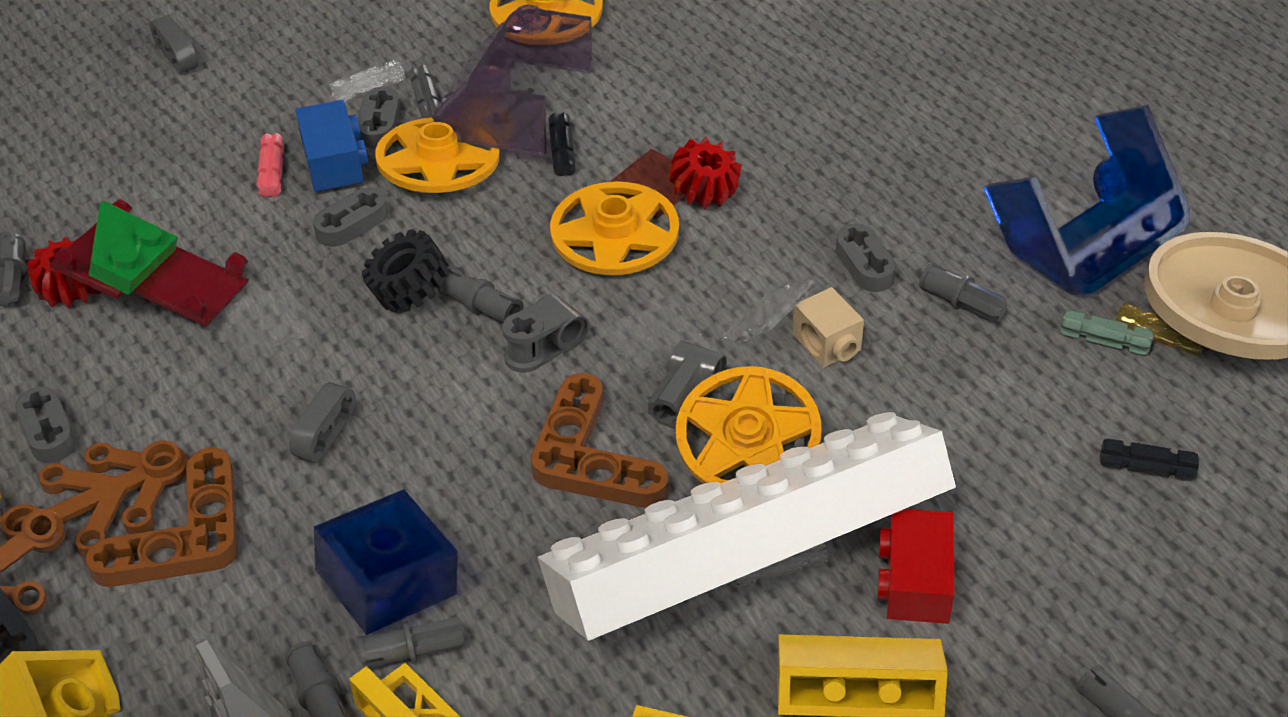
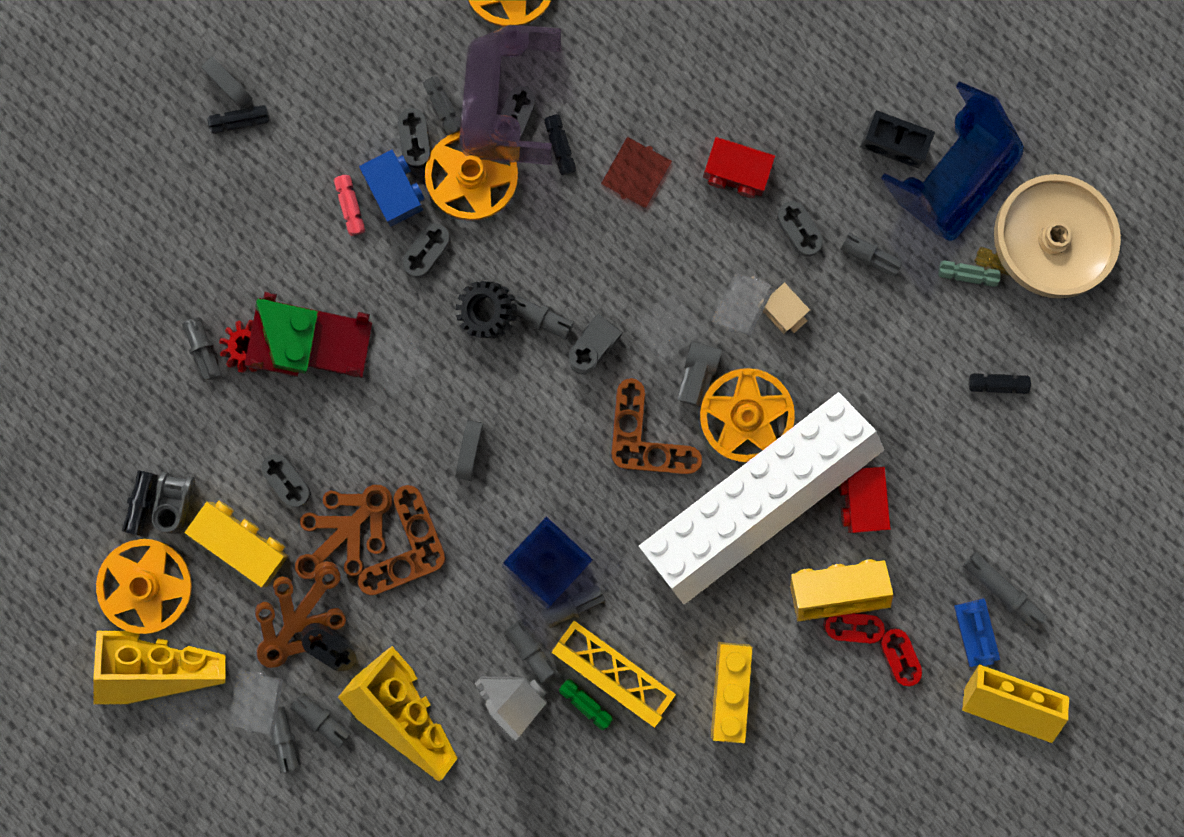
camera: 15 degrees left, 40 degrees up
(171, 77) = (238, 119): none -> black axle
(366, 80) = (392, 97): clear axle -> none
(614, 227) = (619, 230): light orange wheel -> none
(704, 172) = (683, 159): red gear -> none
(791, 183) = (738, 168): none -> red brick
(1002, 159) = (897, 139): none -> black brick

